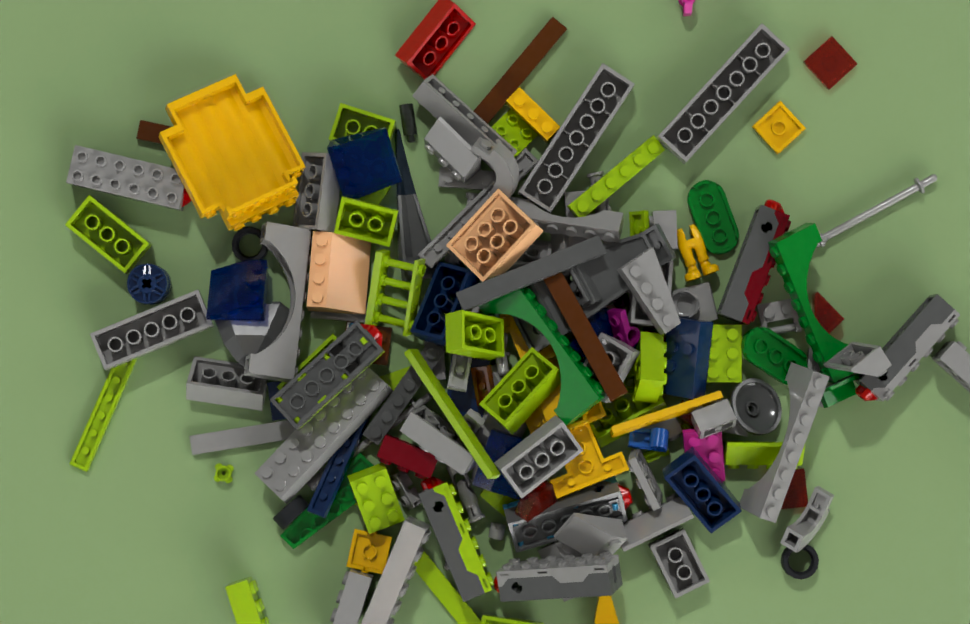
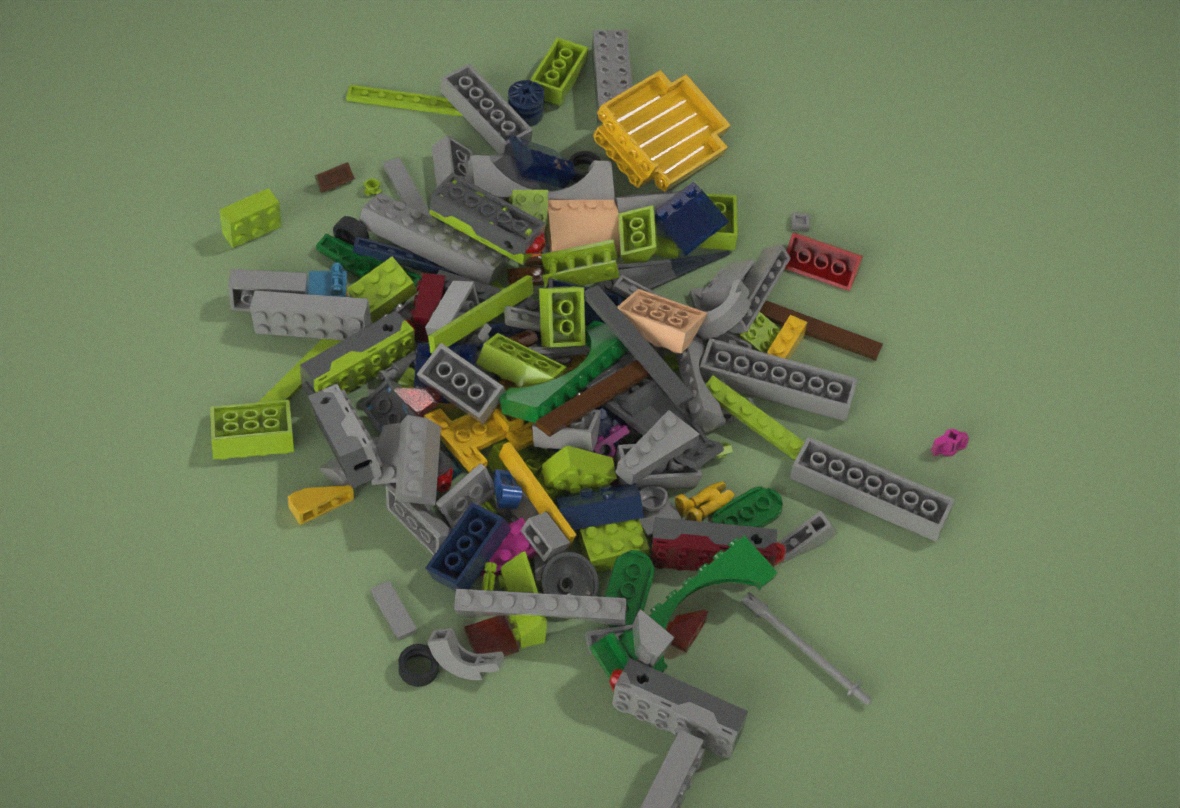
camera: 70 degrees right, 35 degrees down
(203, 510) = (334, 177): none -> reddish brown plate
(316, 326) = (532, 202): none -> lime hinge
(352, 549) = (328, 282): none -> dark azure hinge
(374, 42) = (800, 222): none -> light grey tile
(408, 121) = (744, 254): pearl dark grey cylinder -> none
(618, 520) = (418, 461): none -> light grey slope
(668, 223) = (722, 468): light grey brick -> none
(679, 562) = (386, 550): light grey brick -> none
(734, 478) = (489, 577): none -> lime axle
(736, 568) = (393, 610): none -> light grey tile
(756, 172) = (808, 536): none -> light grey slope
(778, 127) = (859, 551): yellow tile -> none
(778, 311) = (668, 582): light grey plate -> none
(830, 63) = (942, 581): clear red tile -> none

